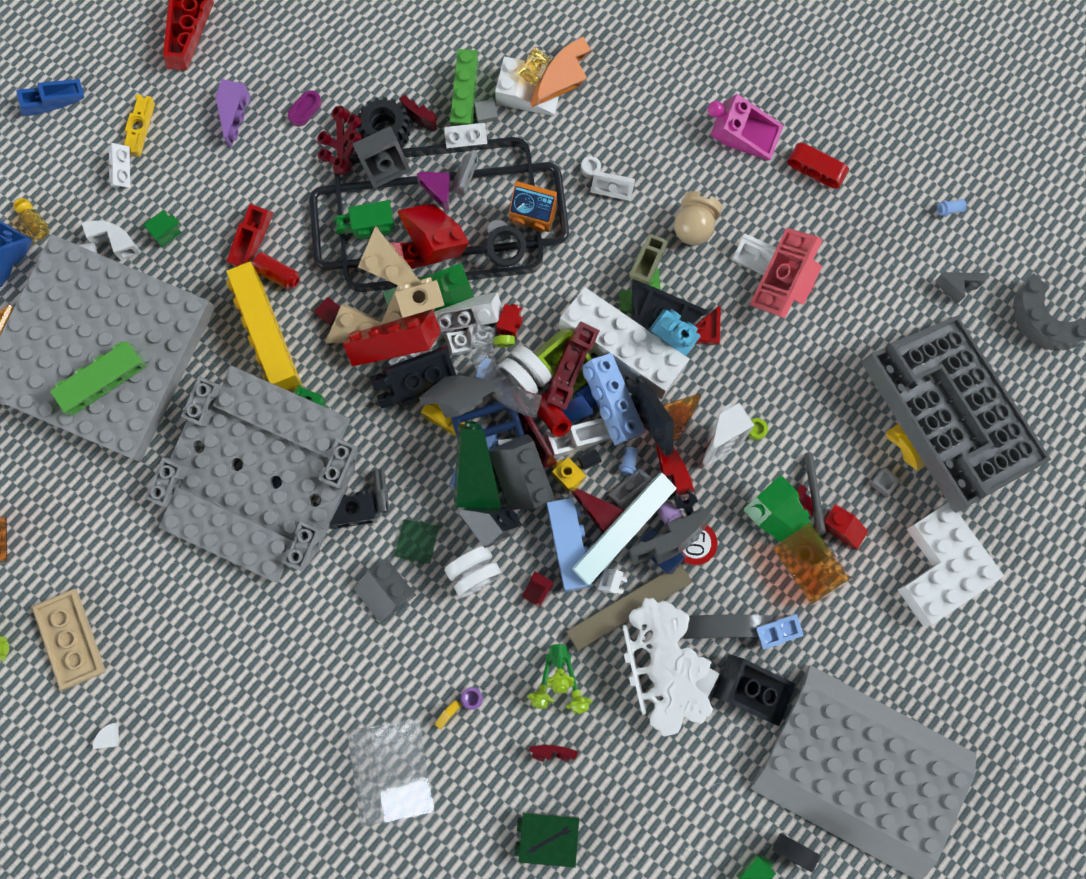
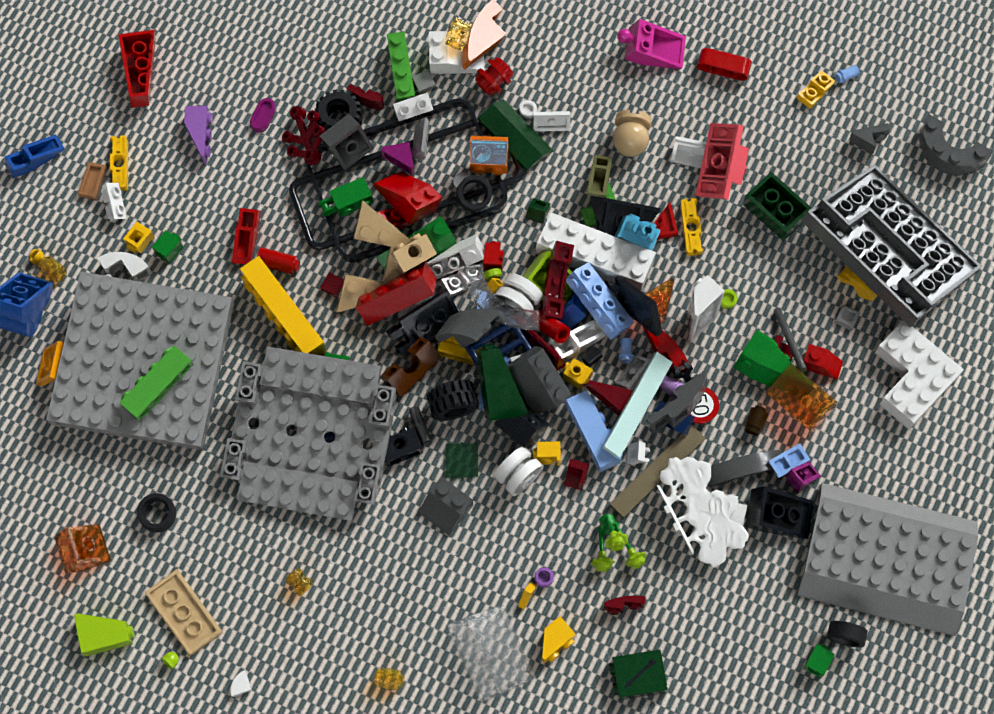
camera: 10 degrees left, 5 degrees down
(38, 690) = (170, 660): none -> lime hinge
(56, 510) = (149, 499): none -> black tyre
(107, 133) = (92, 181): none -> medium nougat tile
(133, 211) = (136, 233): none -> yellow brick
(201, 636) = (299, 581): none -> clear yellow wheel
(269, 772) = (389, 678): none -> clear yellow brick
(403, 418) = (423, 358): none -> reddish brown arch
(421, 473) = (452, 400): none -> black tyre
(466, 772) = (556, 637): none -> yellow slope
(502, 353) = (494, 284): none -> yellow piece
(512, 557) = (548, 453): none -> yellow brick
(562, 122) = (494, 76): none -> red piece
(572, 281) = (537, 210): none -> dark green slope
(574, 198) = (523, 141): none -> dark green slope
(733, 351) = (691, 238): none -> yellow piece
(753, 576) = (755, 420): none -> dark brown brick
(790, 653) = (802, 476): none -> magenta slope
(837, 337) = (776, 206): none -> dark green brick
(912, 216) = (815, 89): none -> yellow slope

